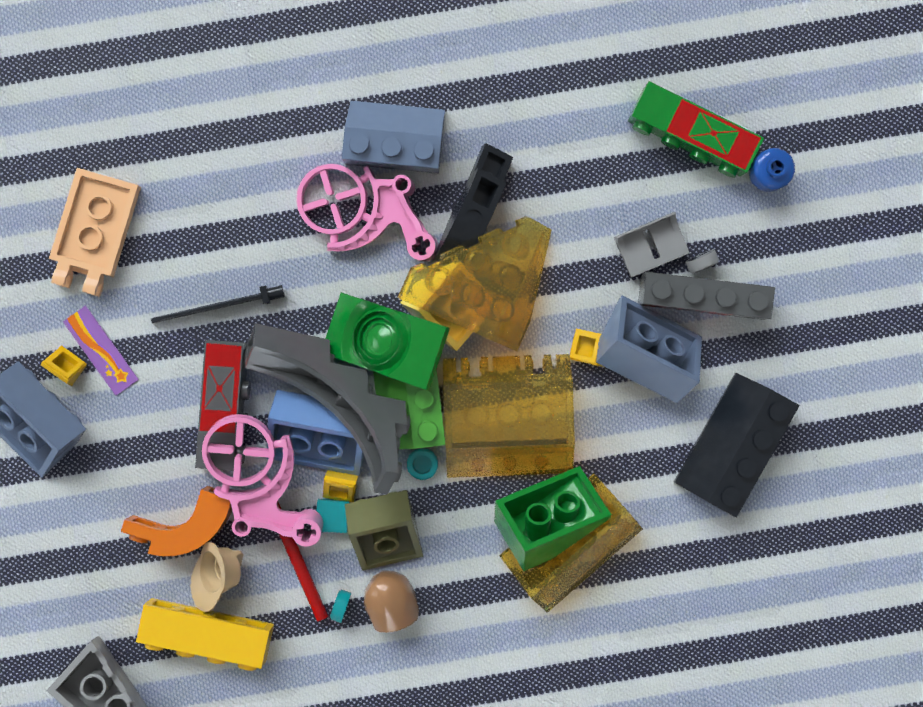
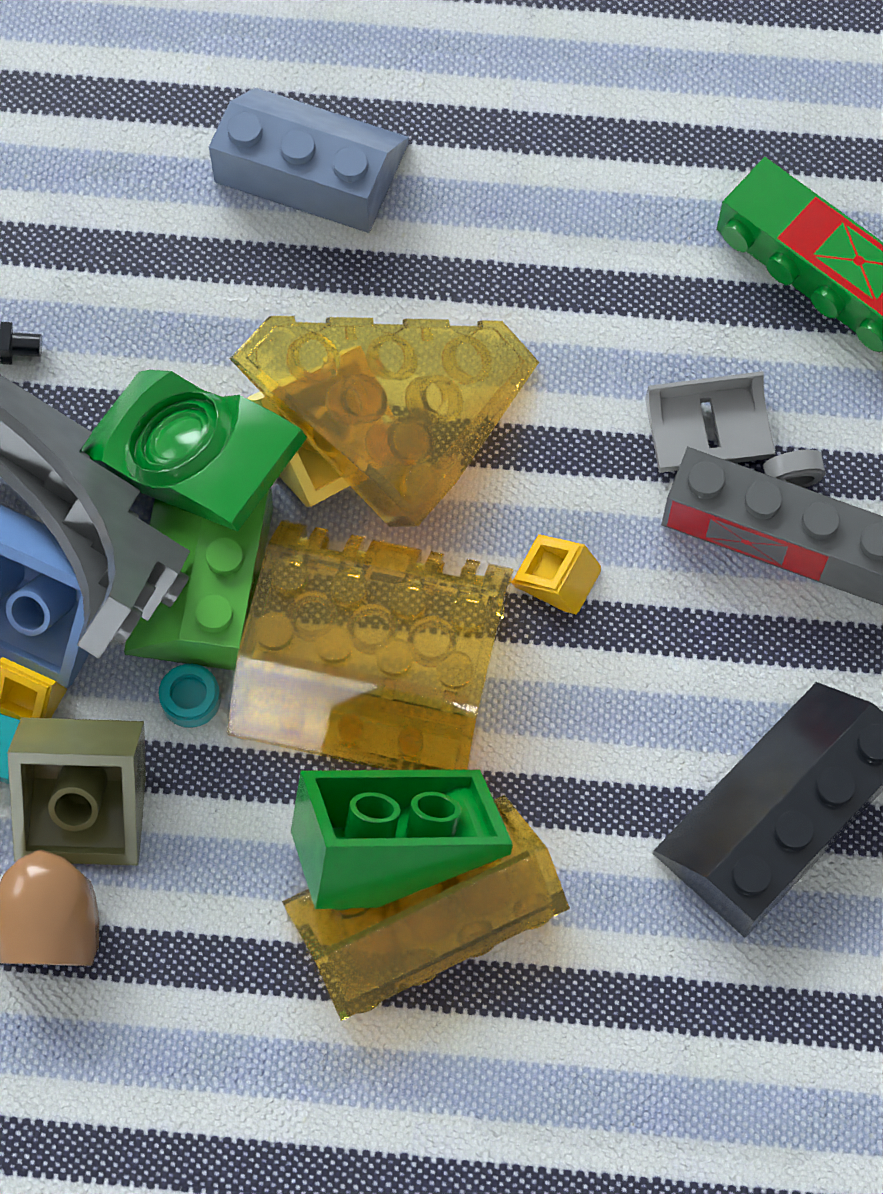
camera: 15 degrees right, 20 degrees down
(389, 207) = (268, 250): bright pink piece -> none
(477, 201) = (427, 265): black slope -> none
(650, 350) = (662, 590): sand blue slope -> none

